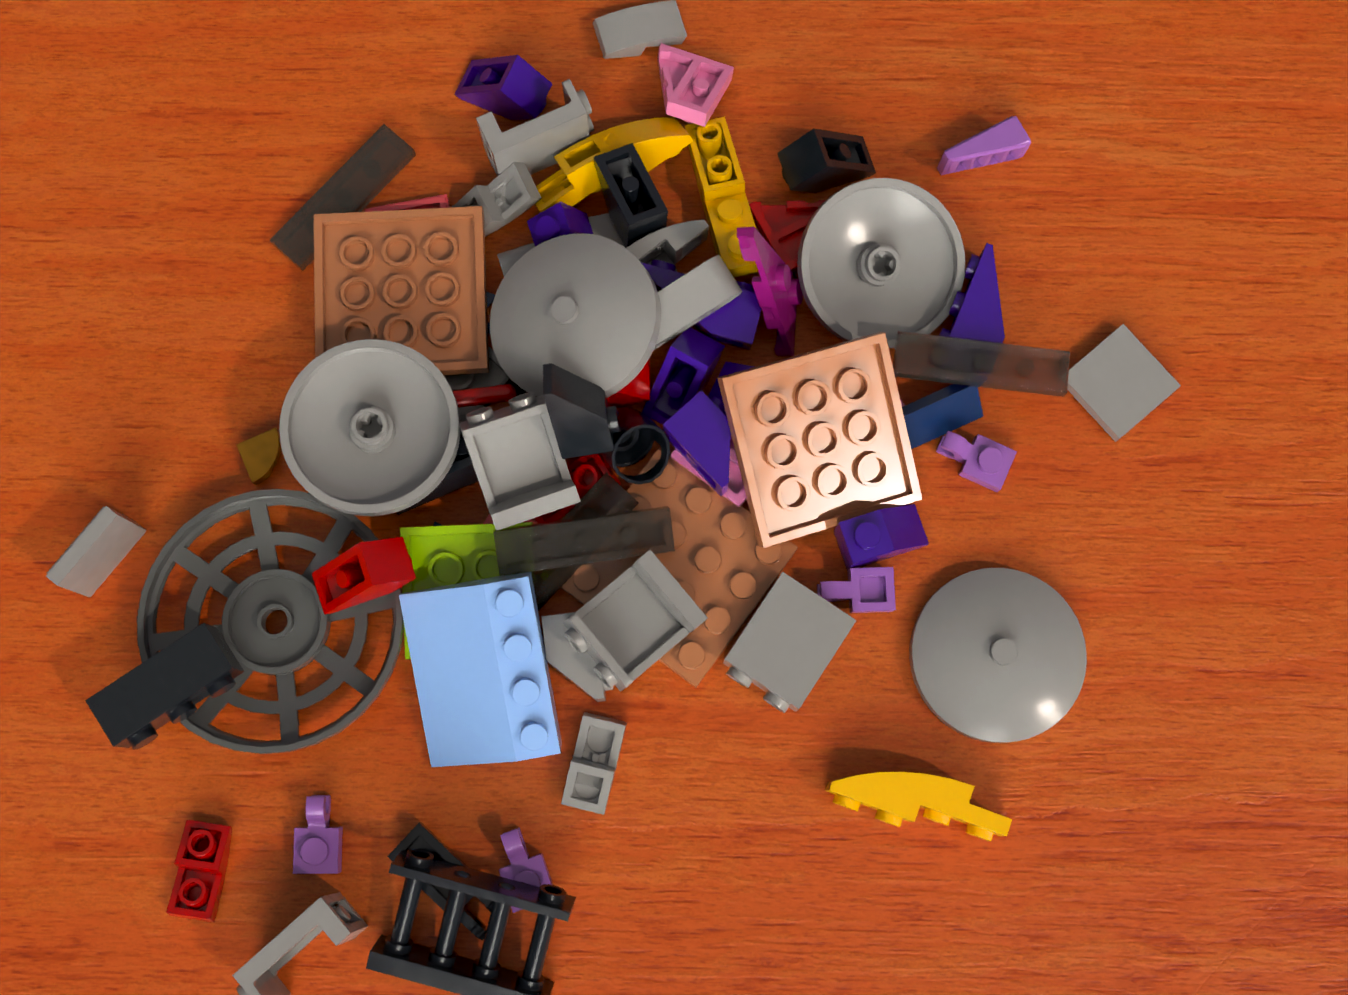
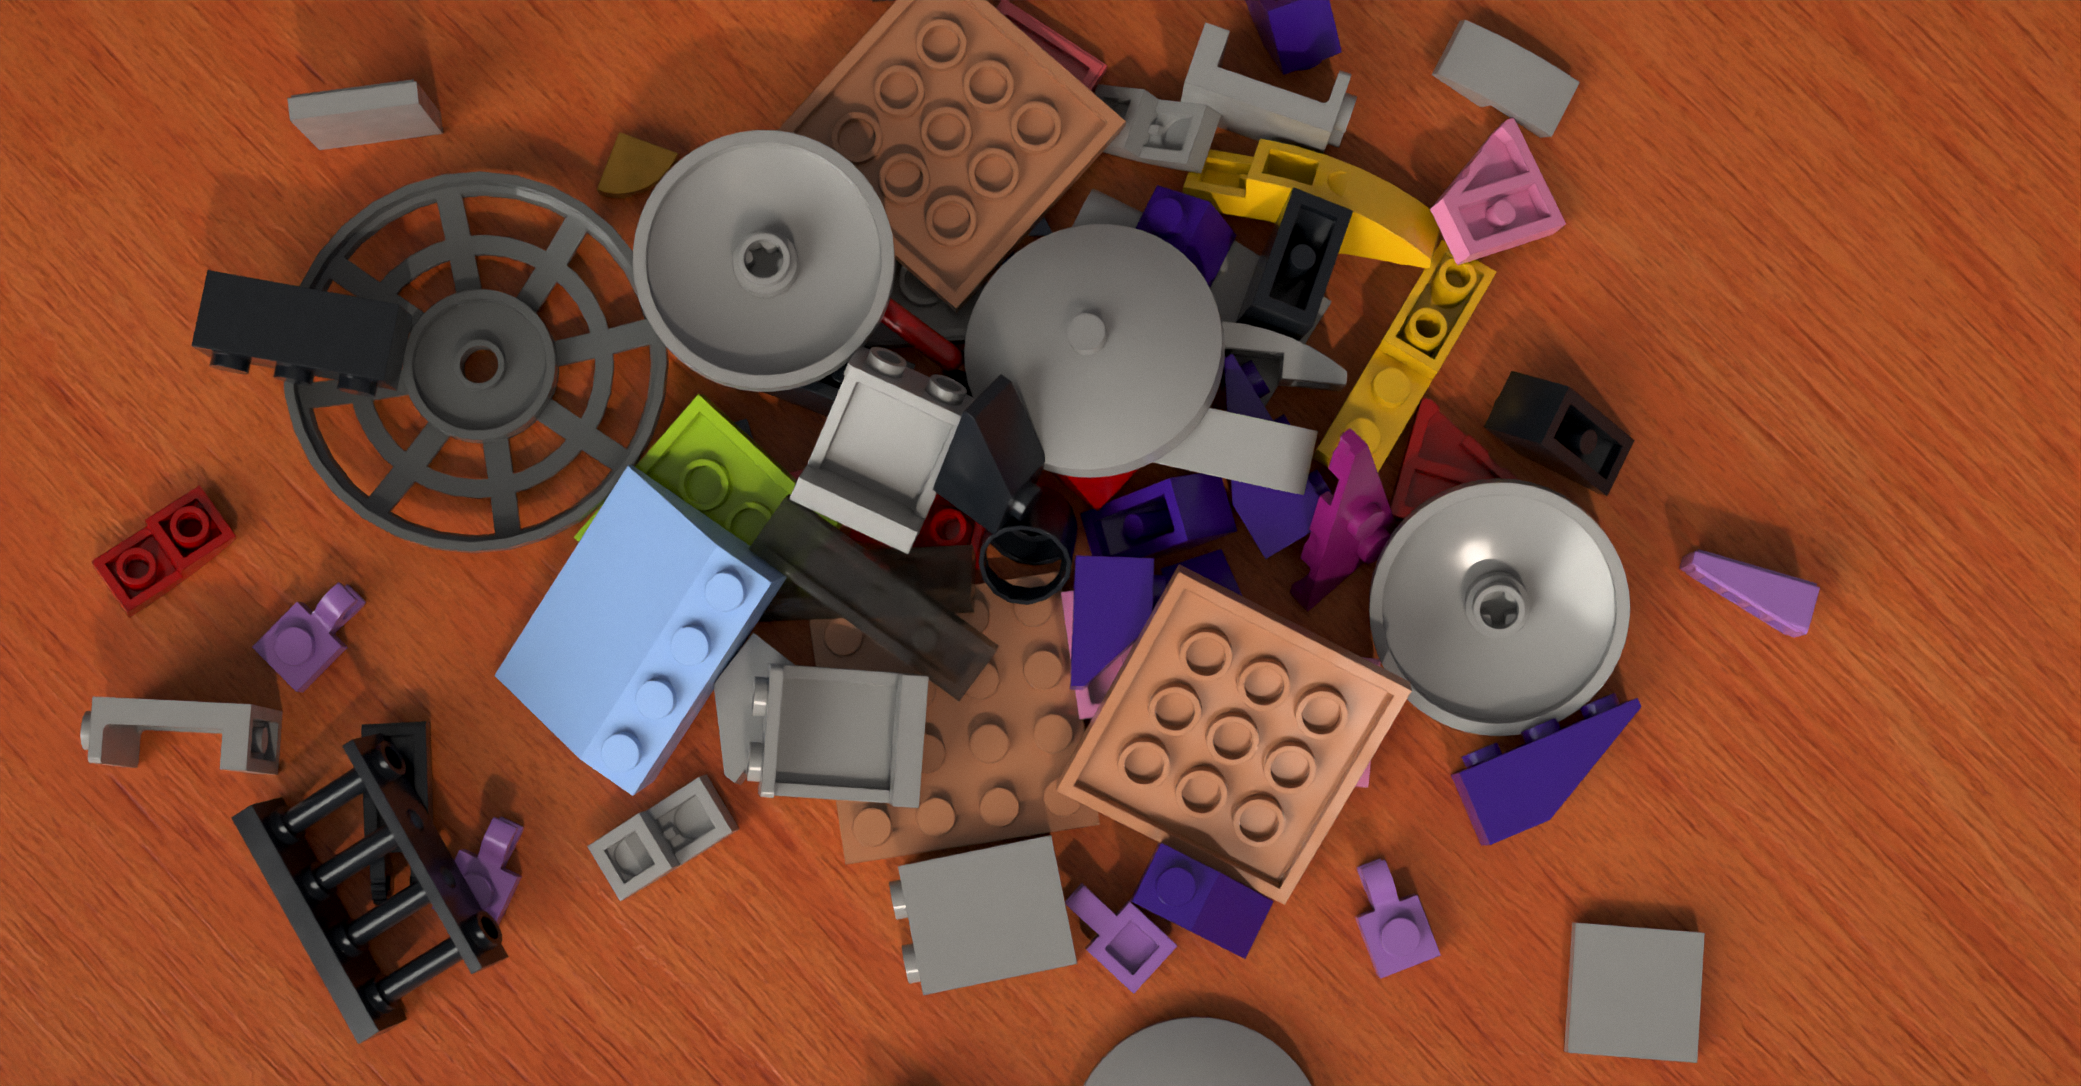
camera: 45 degrees right, 5 degrees up
(363, 574) = (611, 410): red slope -> none
(941, 413) = (1399, 832): dark blue tile -> none
(981, 364) = (1490, 824): clear smoke tile -> none

